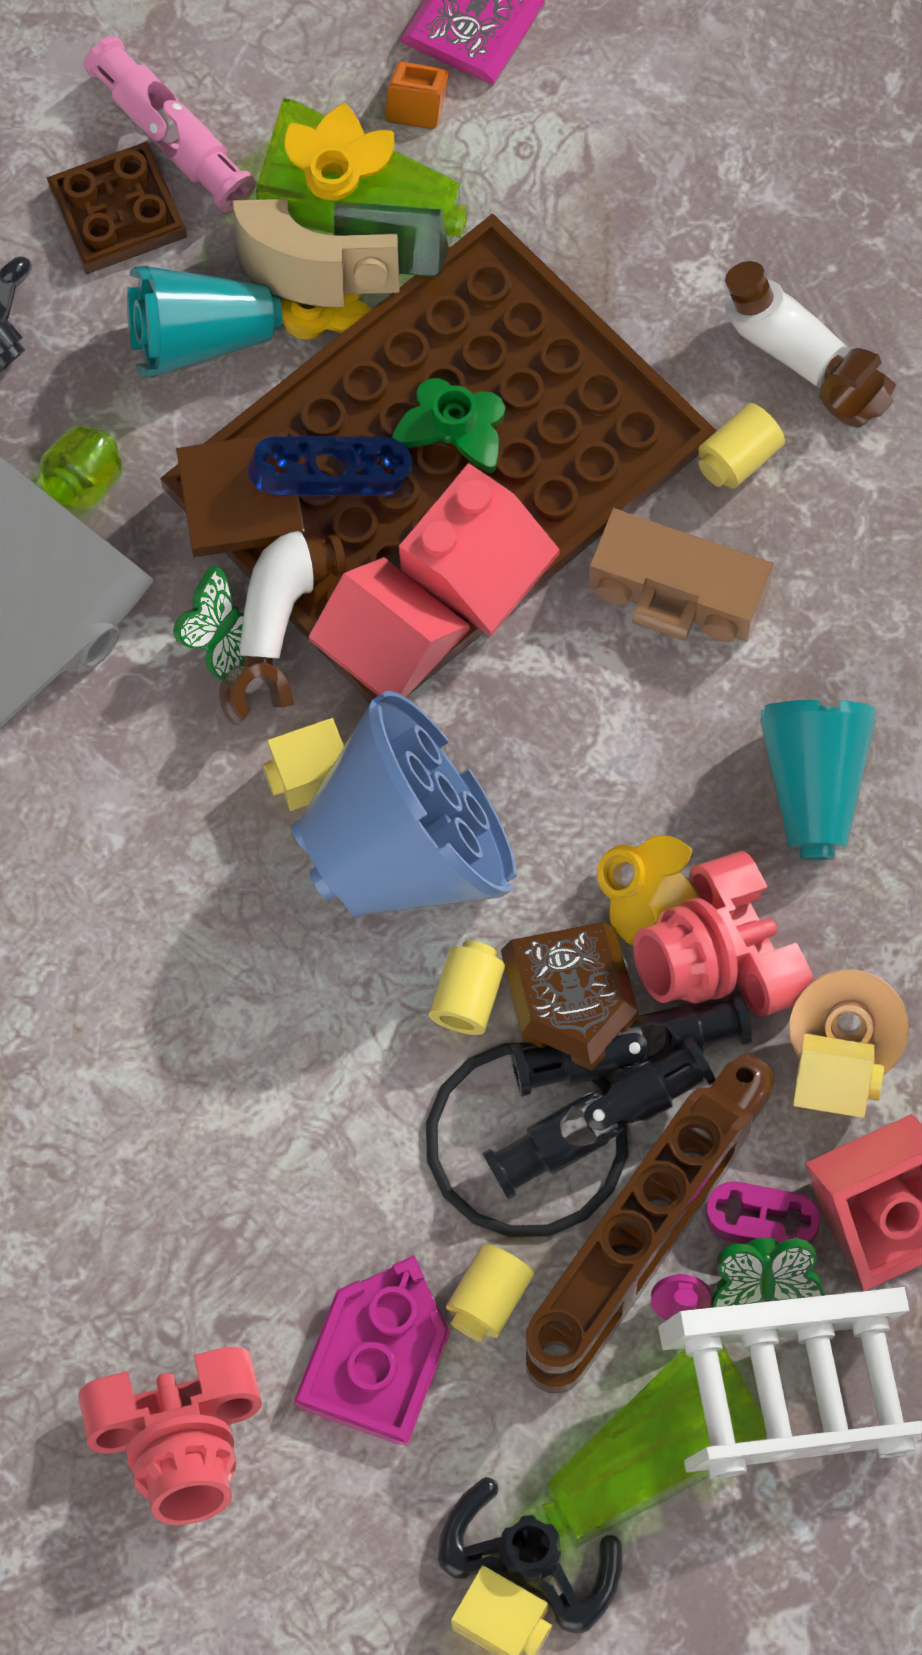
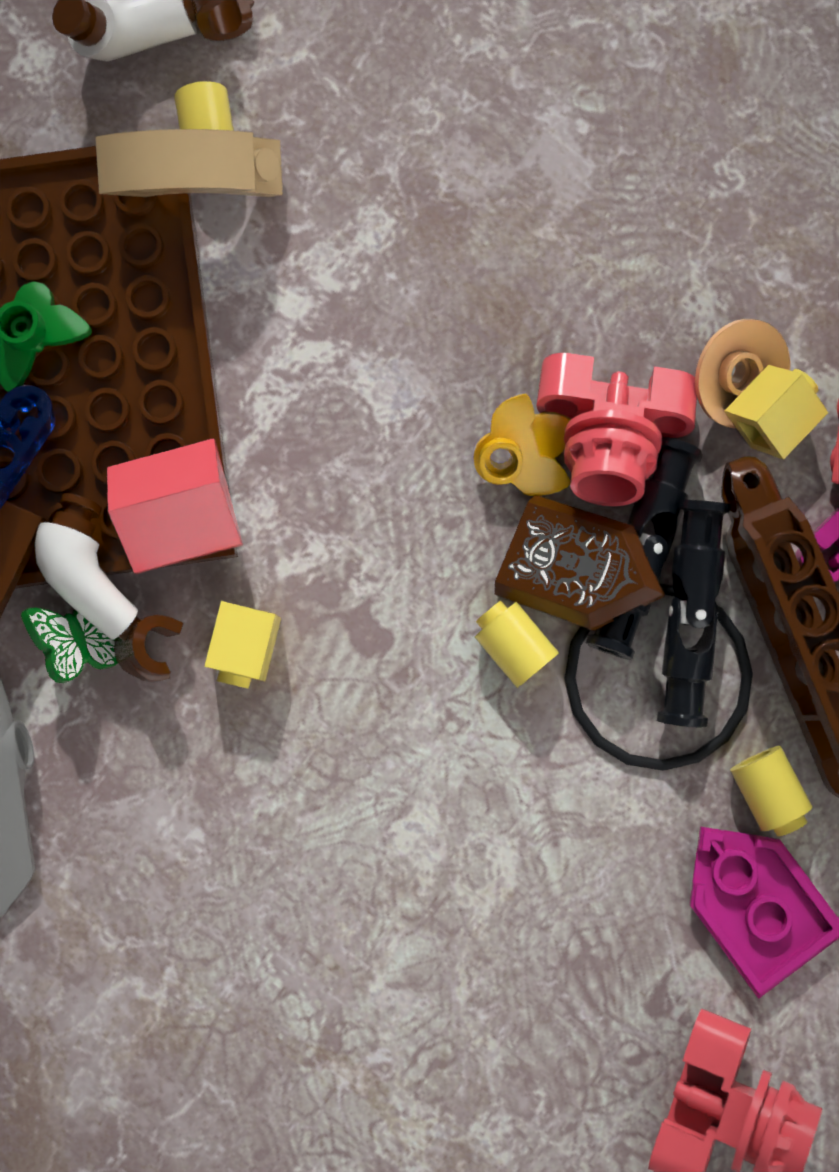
camera: 55 degrees left, 15 degrees up
(401, 821) = (355, 605): medium blue cone -> none
(477, 550) = (156, 388): coral slope -> none
(681, 574) = (282, 244): medium nougat piece -> none
(692, 454) = (188, 162): none -> tan arch
(817, 769) = (524, 253): teal cone -> none

